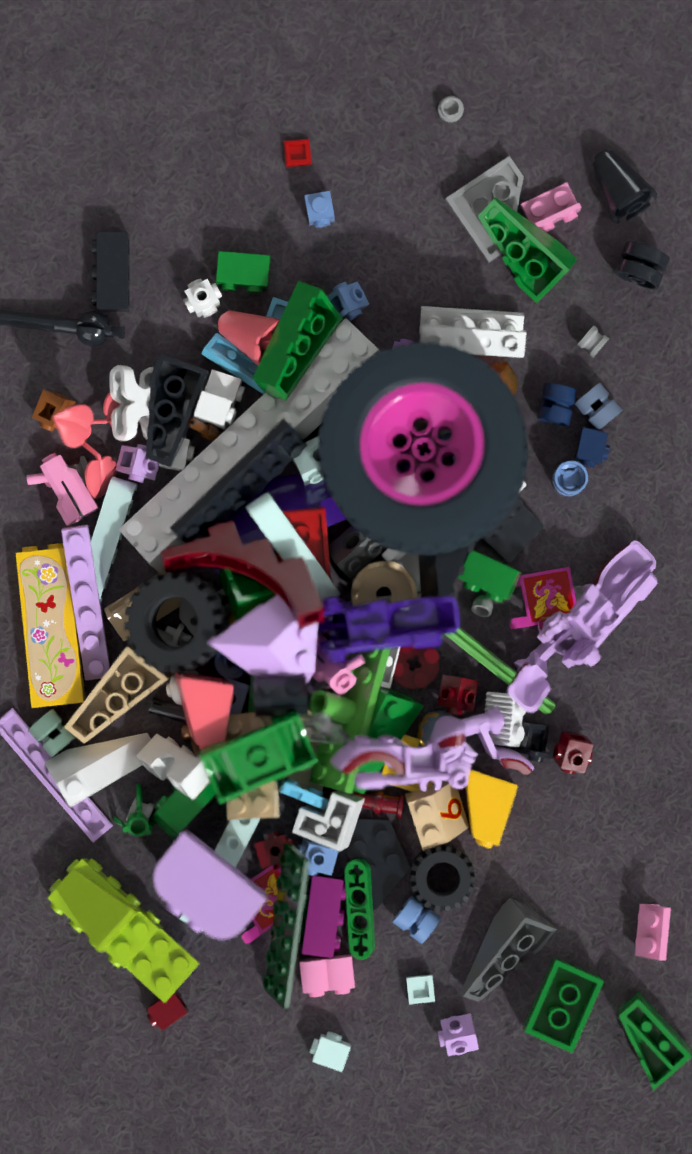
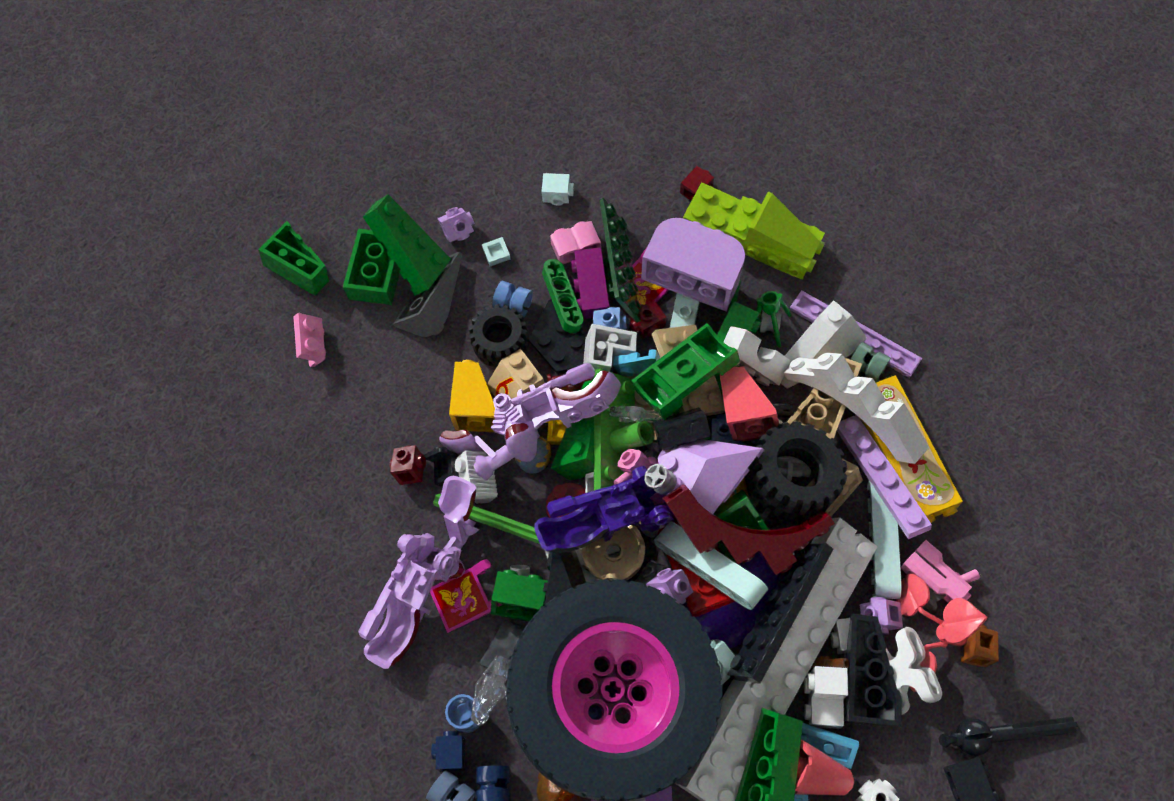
camera: 175 degrees right, 20 degrees down
(84, 679) = (862, 396): none -> white arch
(326, 641) = (660, 472): none -> light grey wheel
(339, 538) = (672, 583): none -> lavender brick
(461, 694) = (523, 487): dark red brick -> none
(516, 1004) = (406, 243): none -> green wedge
(540, 492) = (489, 690): none -> clear plate

